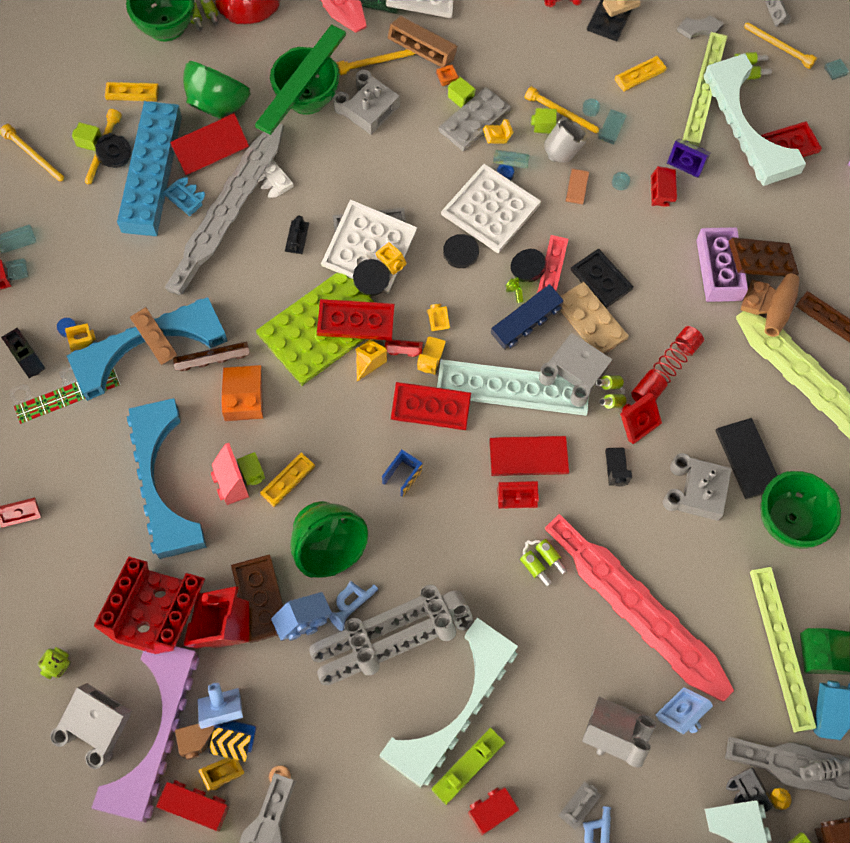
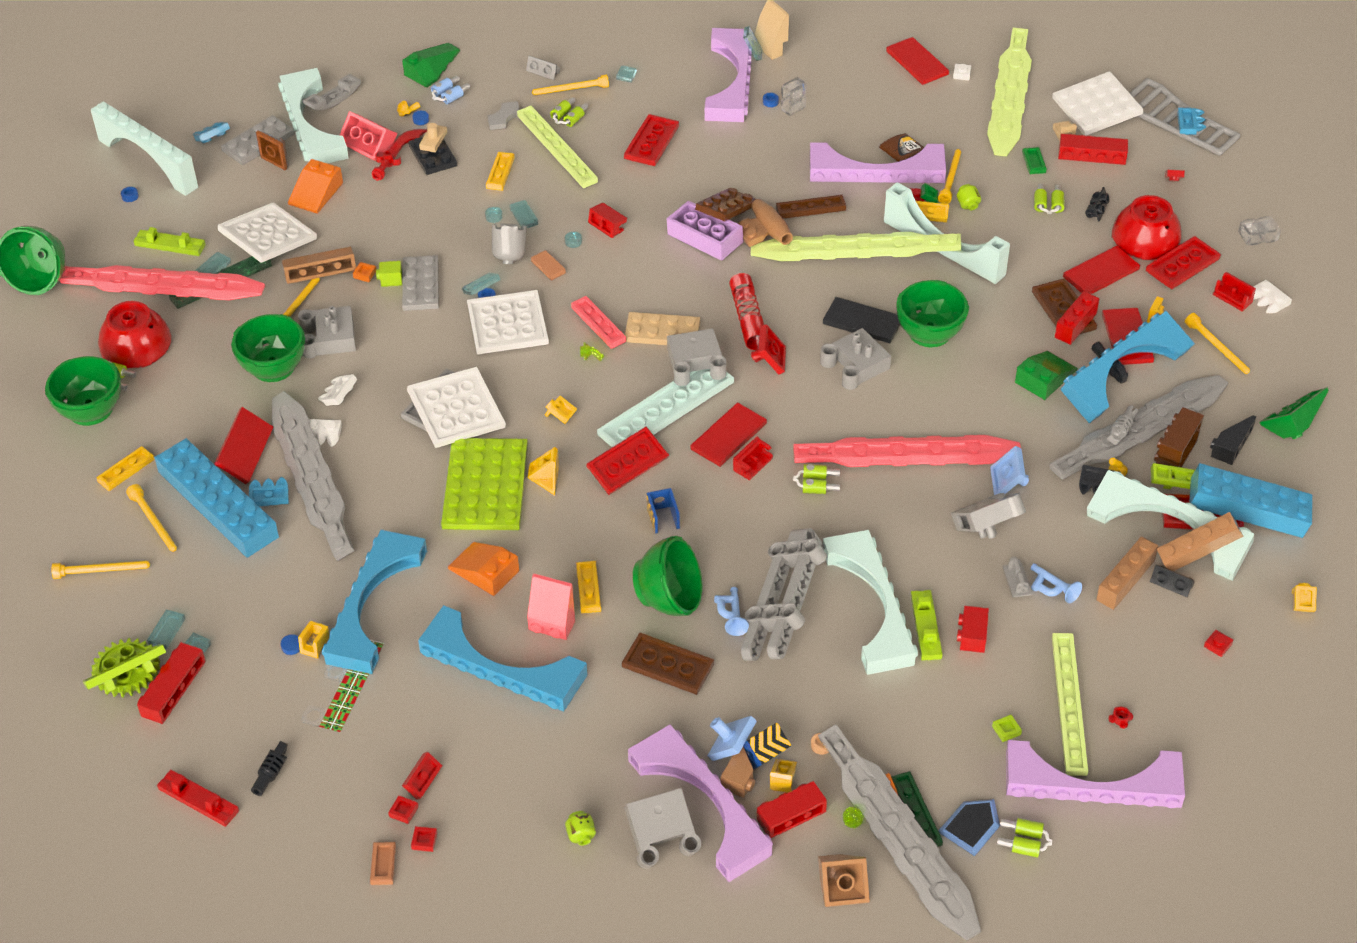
camera: 45 degrees left, 20 degrees down
(23, 353) = (282, 684): black slope -> none
(86, 136) = (132, 520): lime brick -> none
(113, 150) = (167, 512): black tile -> none
(134, 604) = (621, 721): red slope -> none
(153, 335) = (373, 584): medium nougat plate -> none
(205, 357) = (434, 560): reddish brown plate -> none
(213, 91) = (205, 403): green piece -> none
(218, 620) = (662, 687): red piece -> none
(297, 235) = (389, 447): black hinge -> none
(300, 79) = (272, 342): green tile -> none
(301, 616) = (714, 636): medium blue brick -> none
(318, 156) = (337, 392): none -> white plate
(355, 319) = (508, 453): red plate -> none
(371, 277) = (483, 422): black tile -> none
(391, 258) = (483, 396): yellow bracket -> none
(397, 347) = (566, 442): red plate -> none
(431, 355) = (588, 436): yellow bracket -> none
(461, 251) = (520, 363): black tile -> none
(498, 133) = (452, 275): yellow bracket -> none
(527, 316) = (622, 358): dark blue brick -> none
(528, 265) = (580, 330): black tile -> none
(533, 95) = (443, 237): yellow piece -> none
(544, 120) = (474, 244): lime brick -> none
(602, 277) = (636, 300): black tile -> none
(612, 400) = (730, 347): lime piece -> none
(617, 467) = (792, 392): black bracket -> none
(688, 157) = (602, 189): dark purple slope -> none
(768, 159) = (656, 150): light aqua arch -> none
(782, 650) = (1017, 396): yellowish green plate -> none

